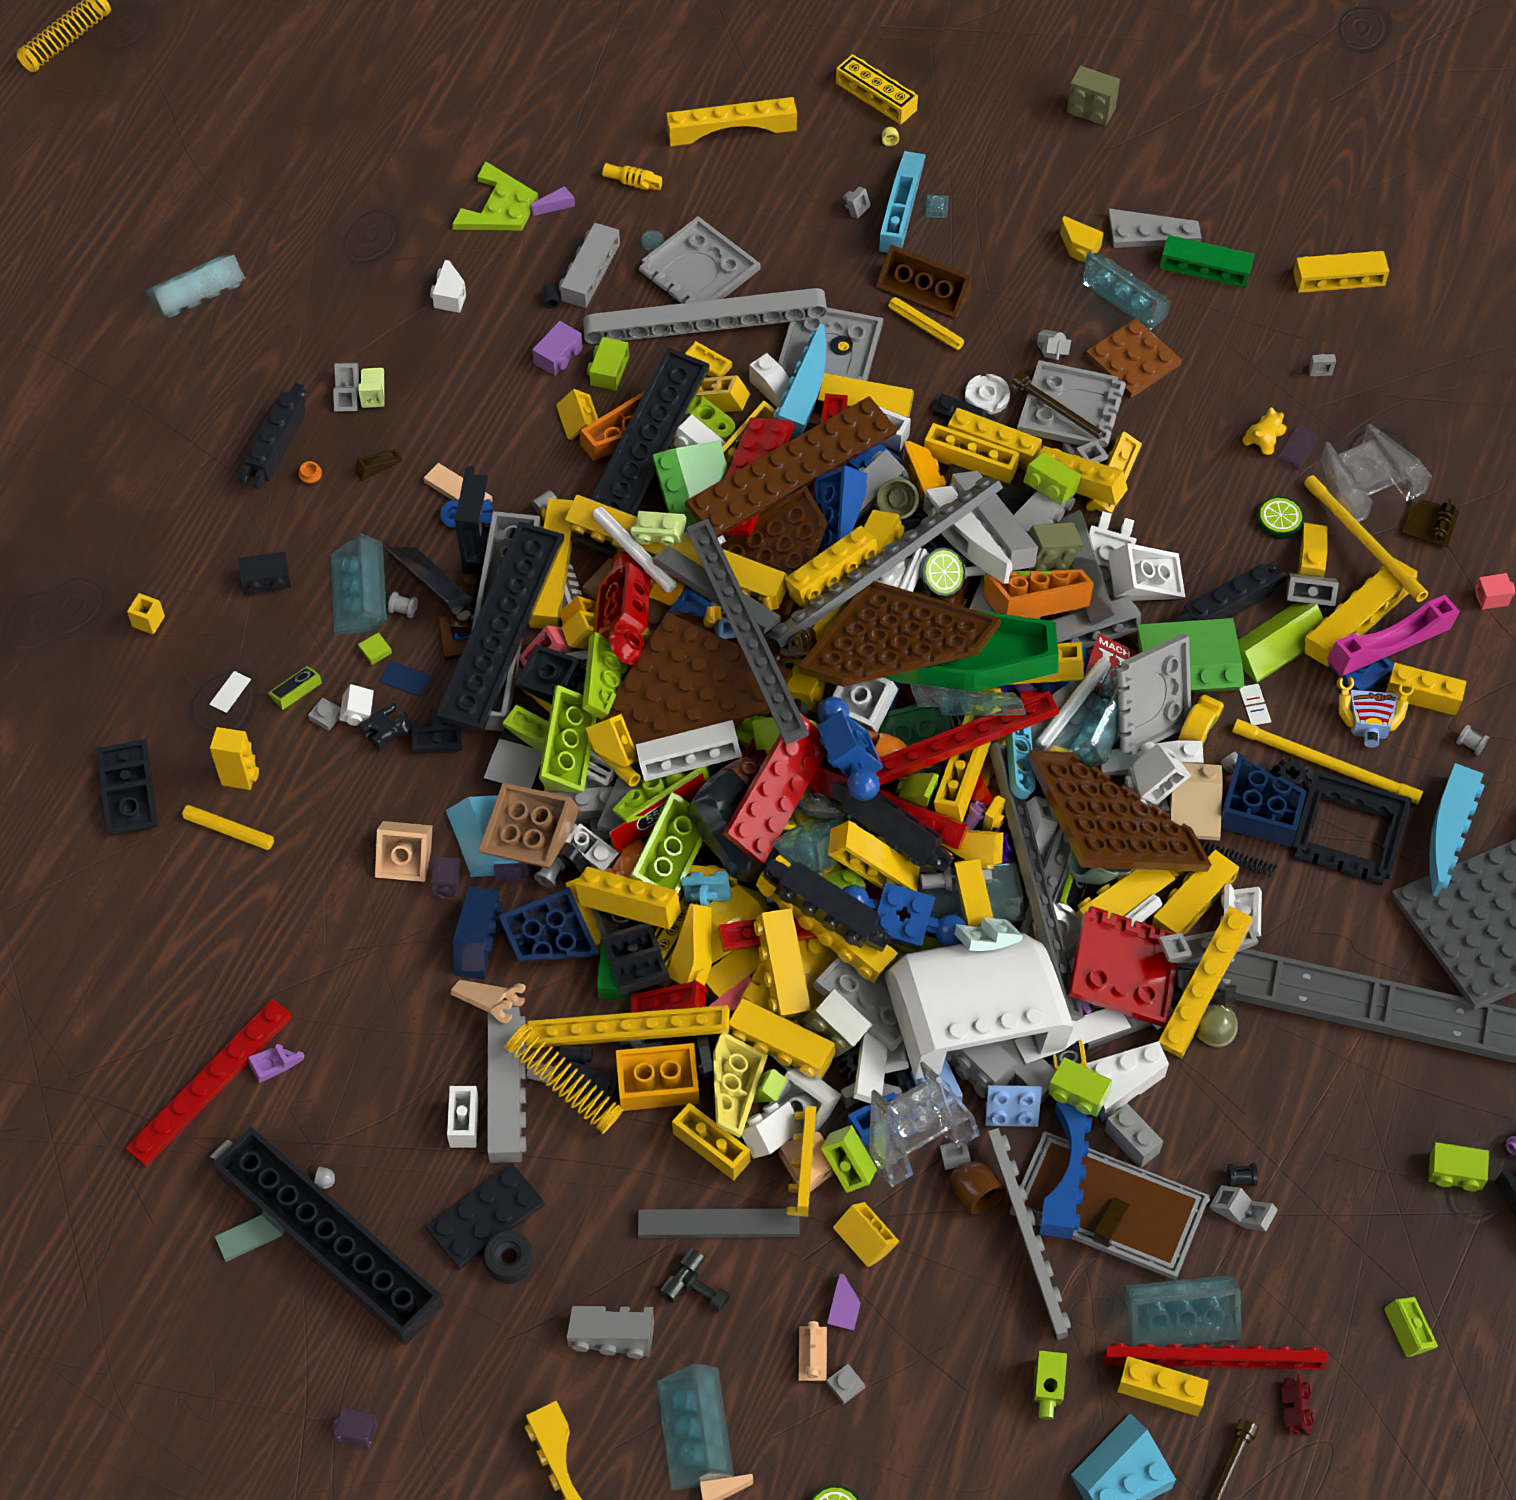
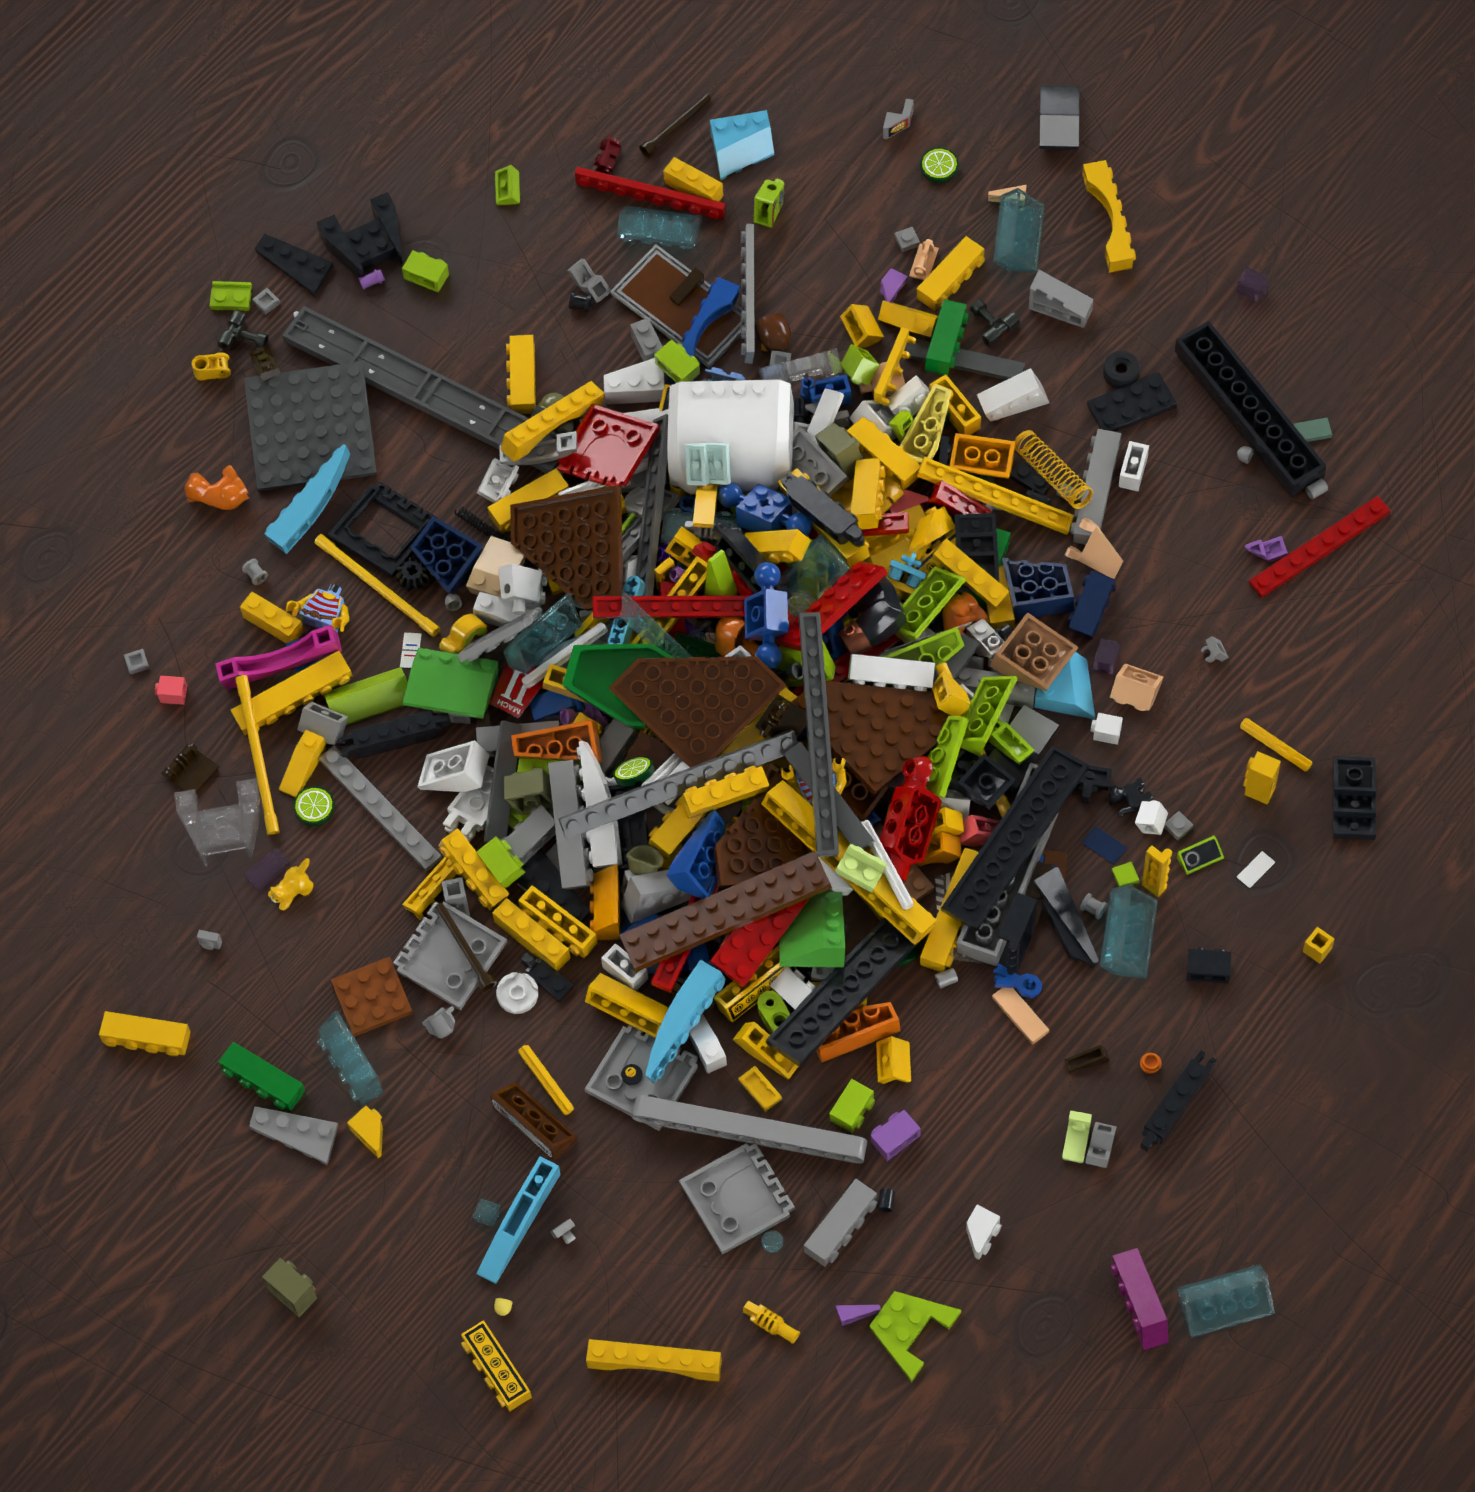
camera: 160 degrees left, 5 degrees up
(278, 261) = (1140, 1298): none -> magenta wedge
(317, 916) = (1216, 649): none -> light grey tile
(335, 621) = (1156, 870): none -> yellow hinge
(428, 794) = (1107, 728): none -> white brick
(637, 1174) = (1013, 396): none -> white wedge
(749, 1234) = (946, 336): none -> green brick
(770, 1339) = (950, 273): none -> yellow brick
(799, 1251) = (908, 318): none -> yellow slope
(1206, 529) = (380, 808): none -> light grey plate
(1273, 1056) = (522, 374): none -> yellow brick

